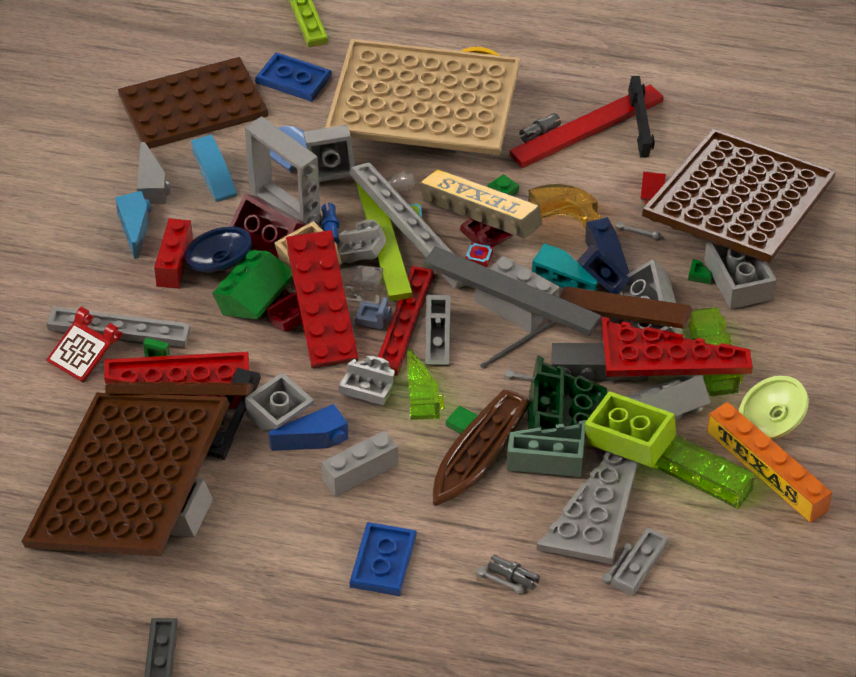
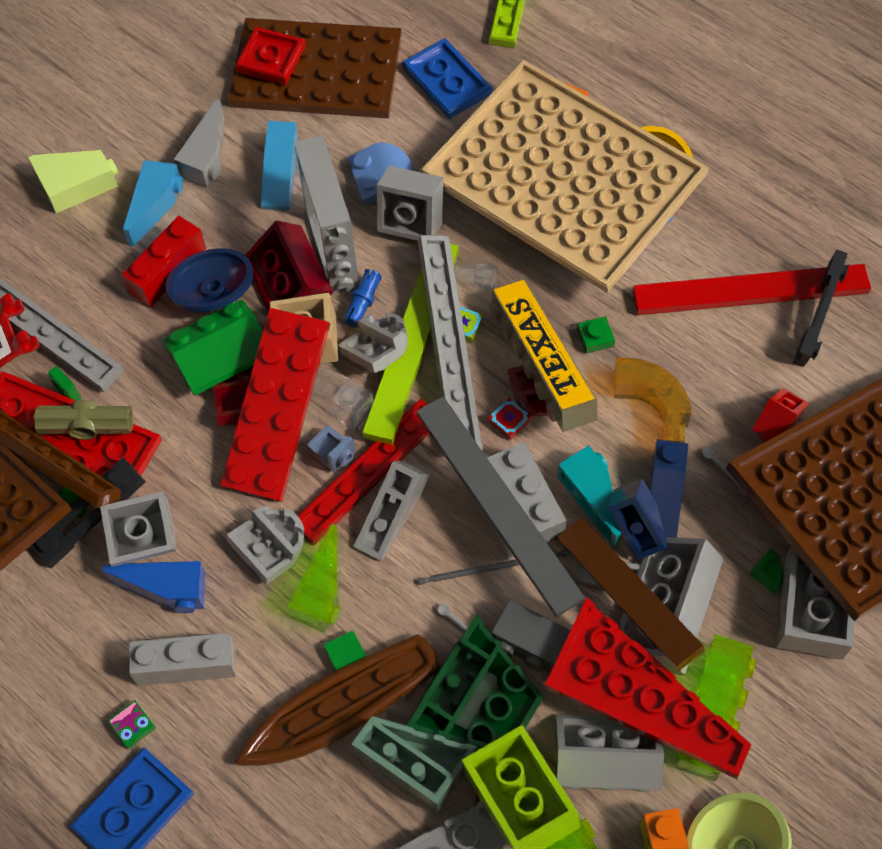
camera: 30 degrees right, 15 degrees up
(62, 230) = (74, 176): none -> yellowish green slope
(158, 103) = (270, 55): none -> red tile
(191, 359) = (83, 419): none -> olive piece
(348, 515) = (131, 724): none -> tile
(540, 127) = (689, 268): dark grey pin -> none

